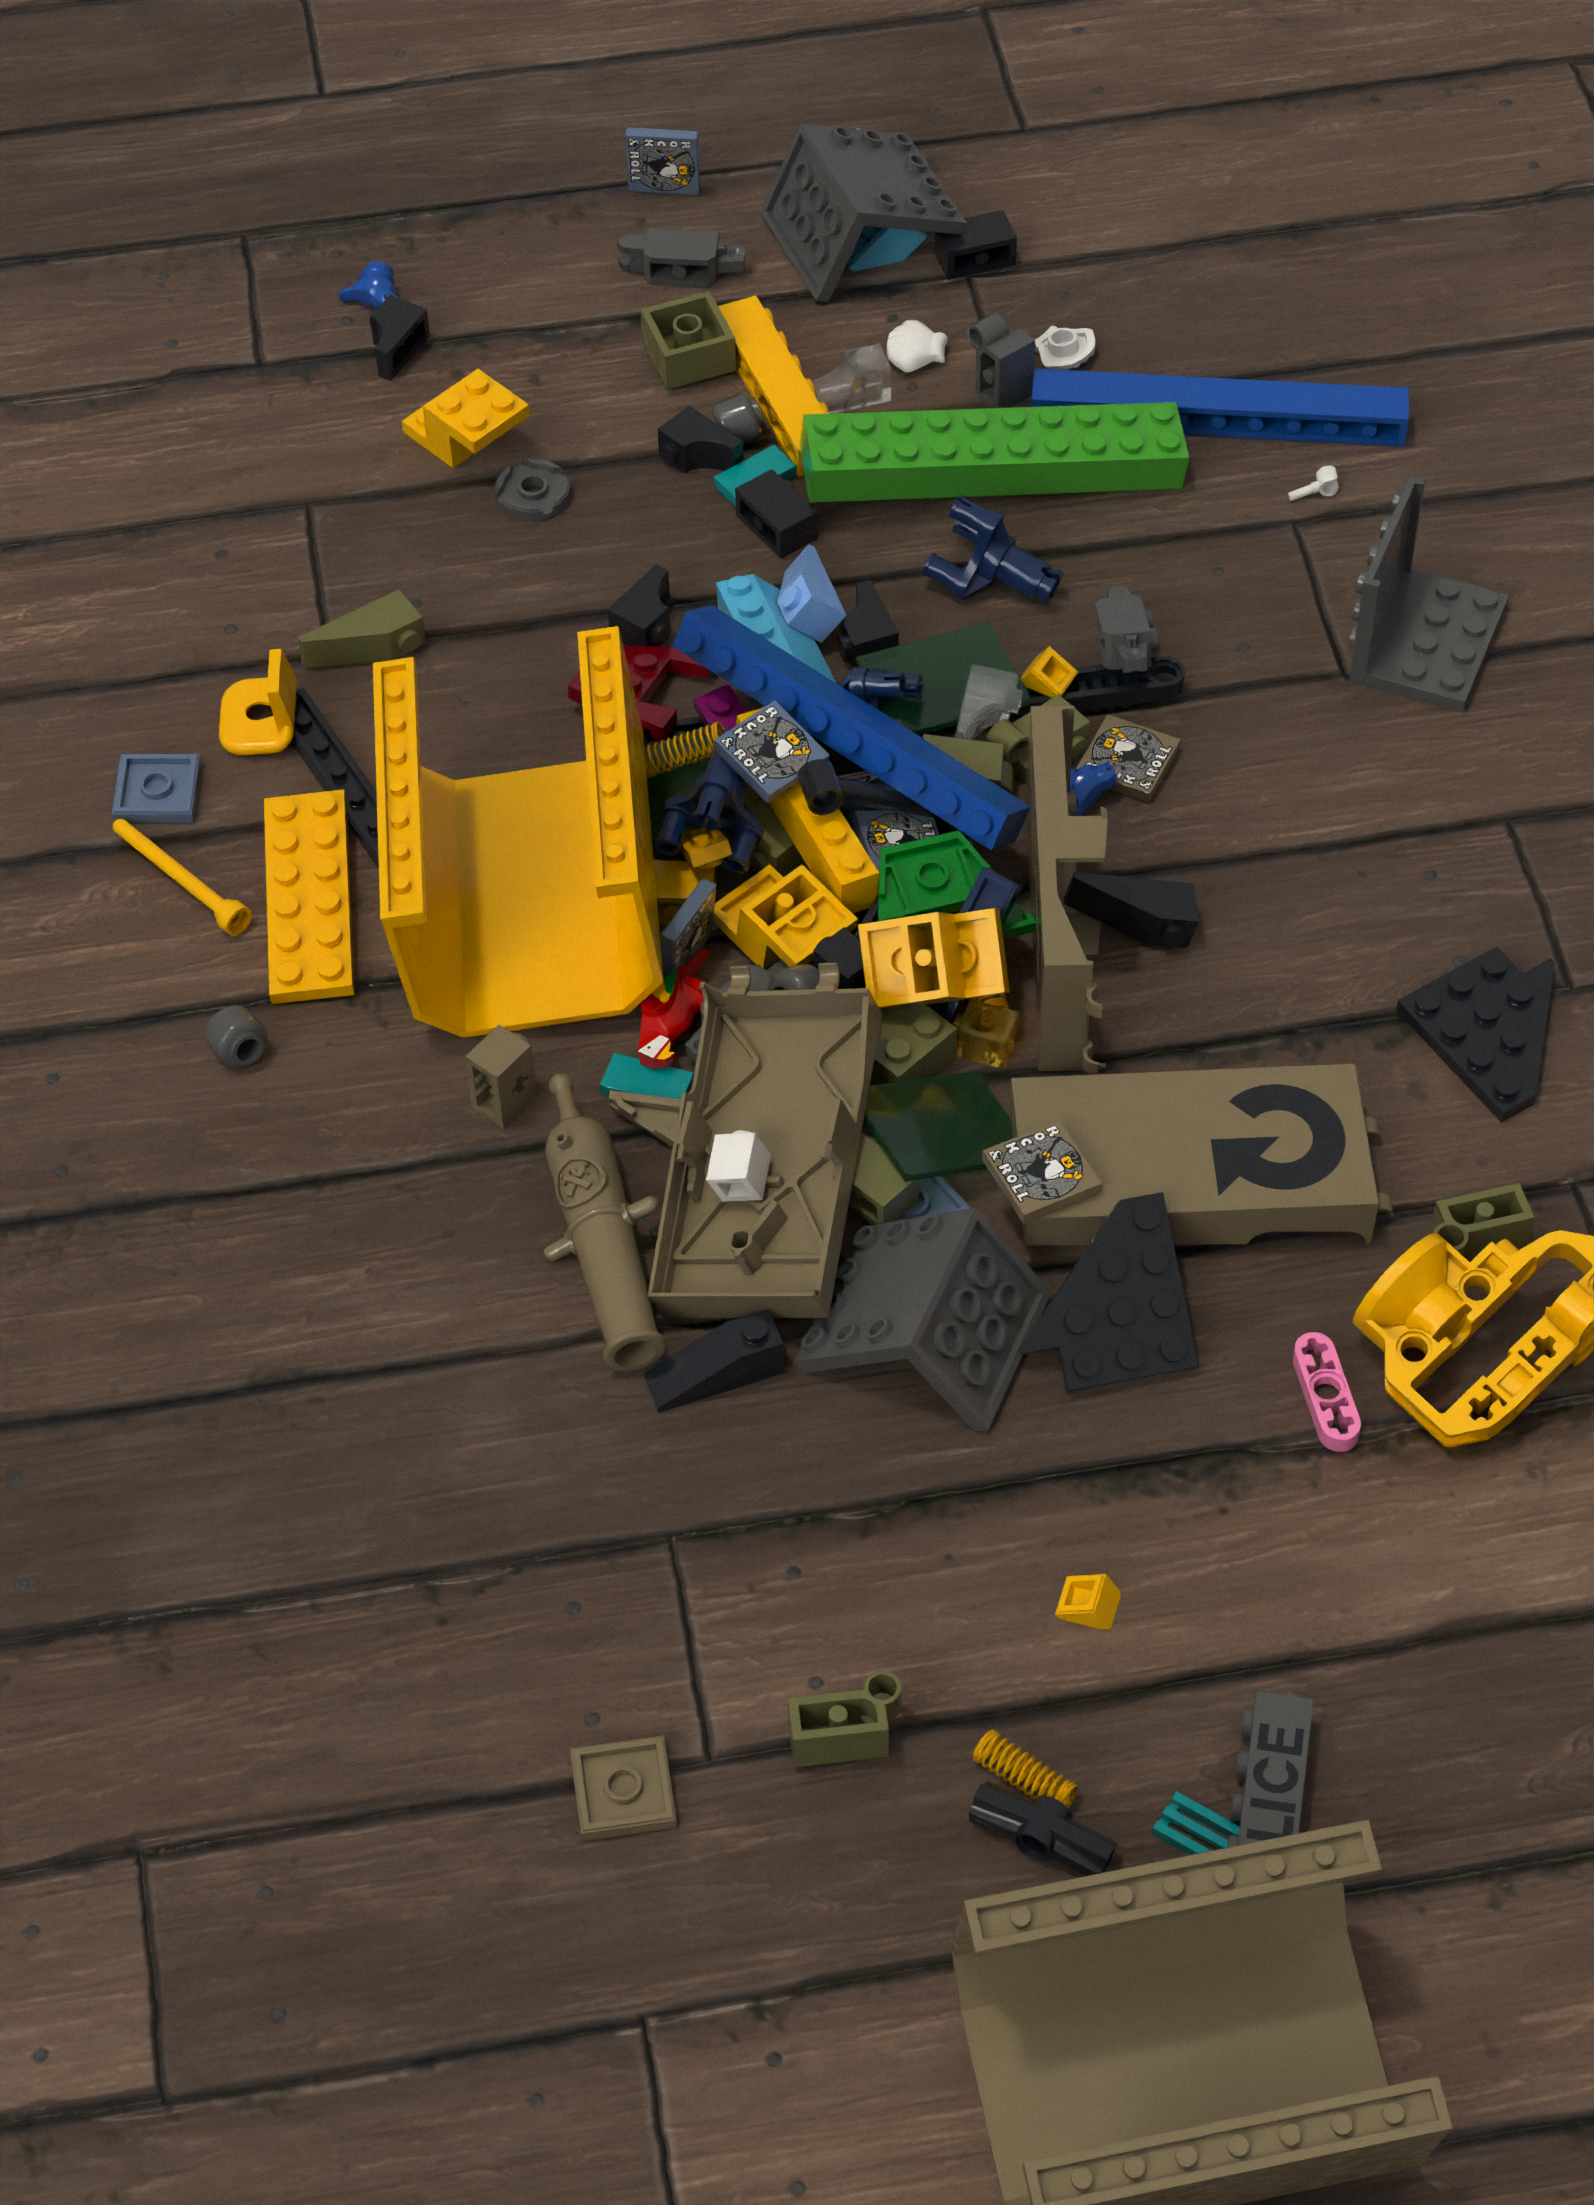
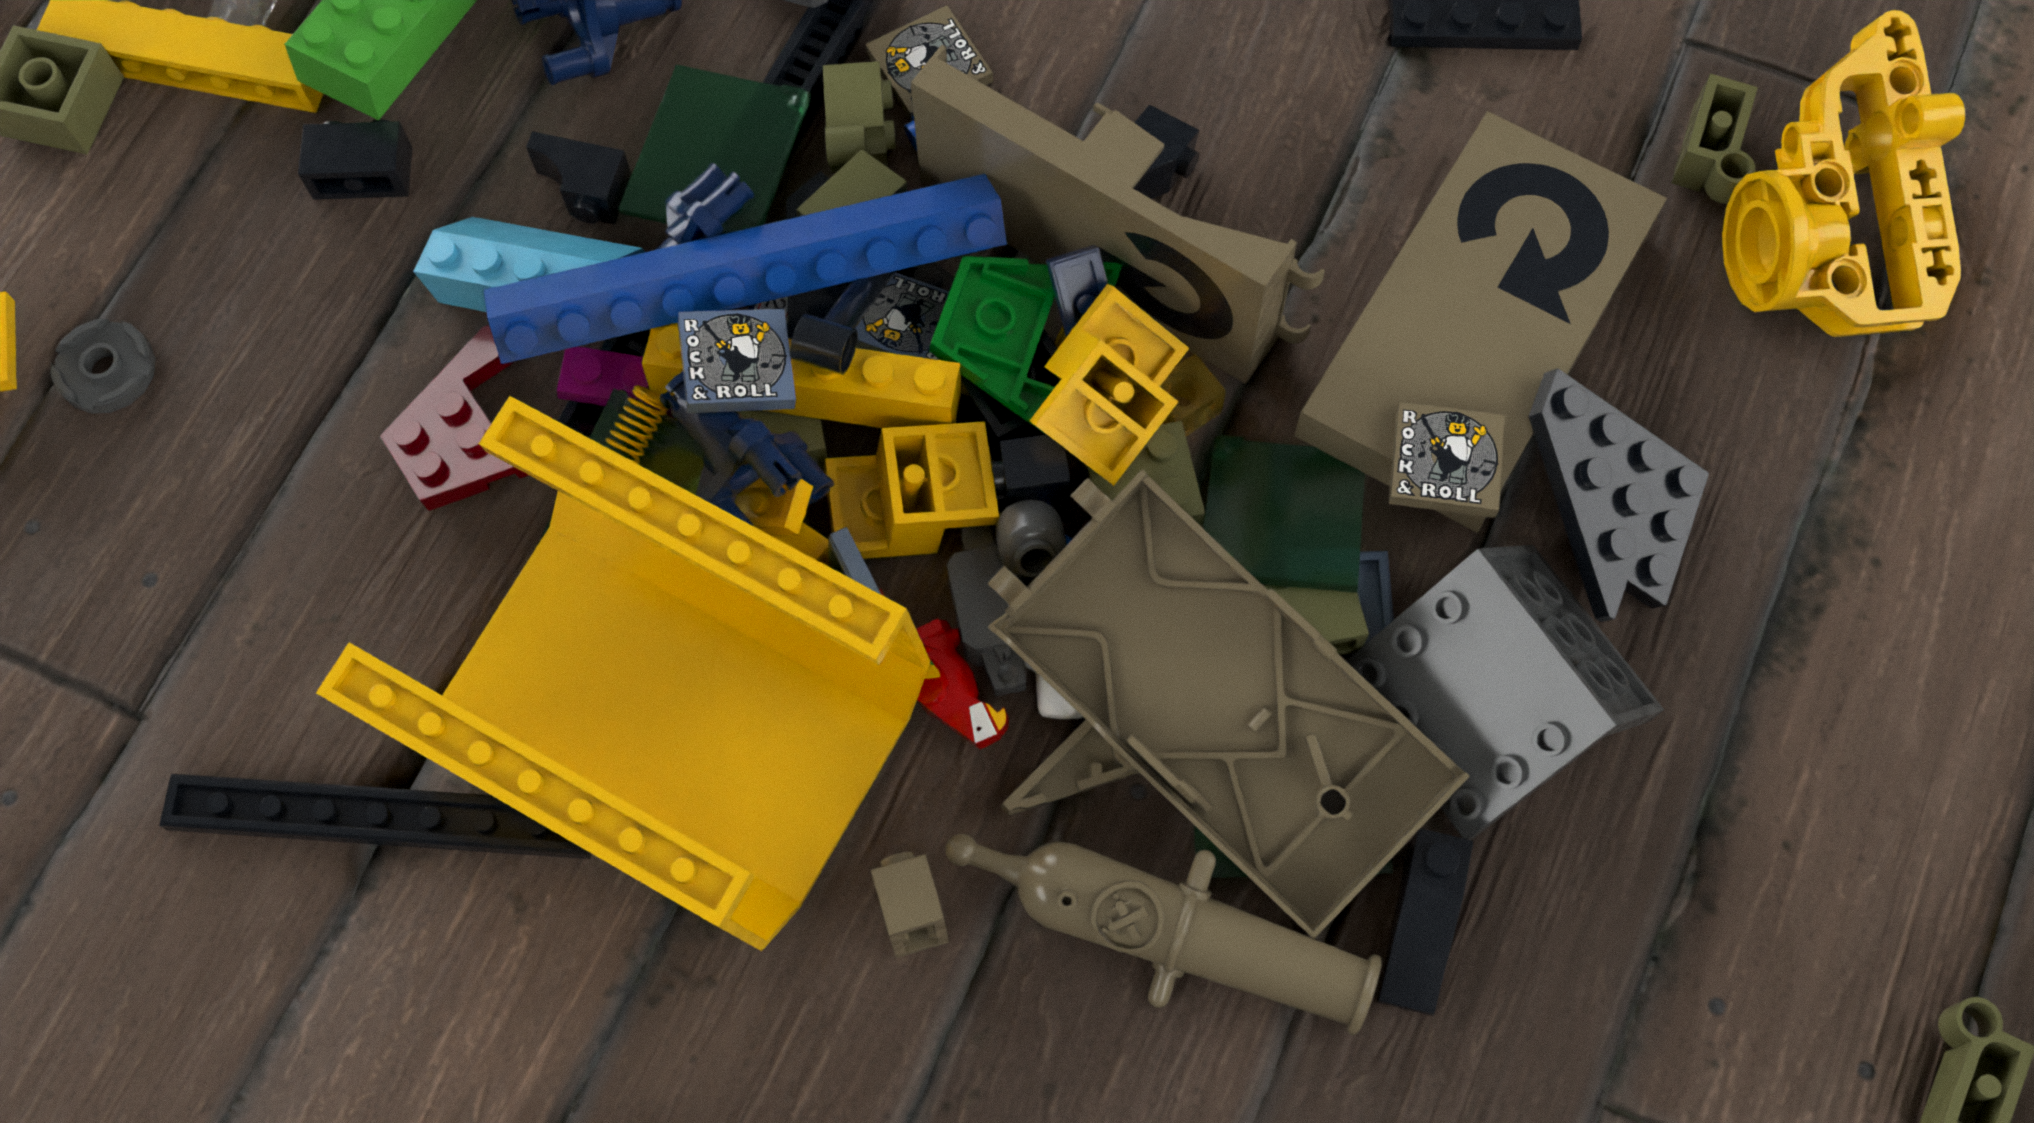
camera: 55 degrees left, 15 degrees up
(157, 788) = (174, 1028): sand blue tile -> none
(229, 914) = (434, 1060): yellow piece -> none
(263, 736) = (199, 867): yellow piece -> none
(308, 897) = (478, 955): yellow plate -> none
(366, 635) = (161, 652): olive slope -> none
(629, 1076) = (994, 769): teal tile -> none
(642, 610) = (379, 369): black arch -> none
(697, 442) = (193, 169): black arch -> none
(738, 1166) = (1232, 740): white brick -> none
(740, 417) = (198, 116): dark grey head -> none
(752, 467) = (279, 148): teal tile -> none
(809, 597) = (497, 197): light blue slope -> none
(987, 699) = (790, 133): clear arch -> none
(1049, 674) = (786, 58): yellow slope -> none
(1089, 1601) = (1919, 750): yellow slope -> none
(1323, 1409) = (1822, 376): bright pink beam -> none

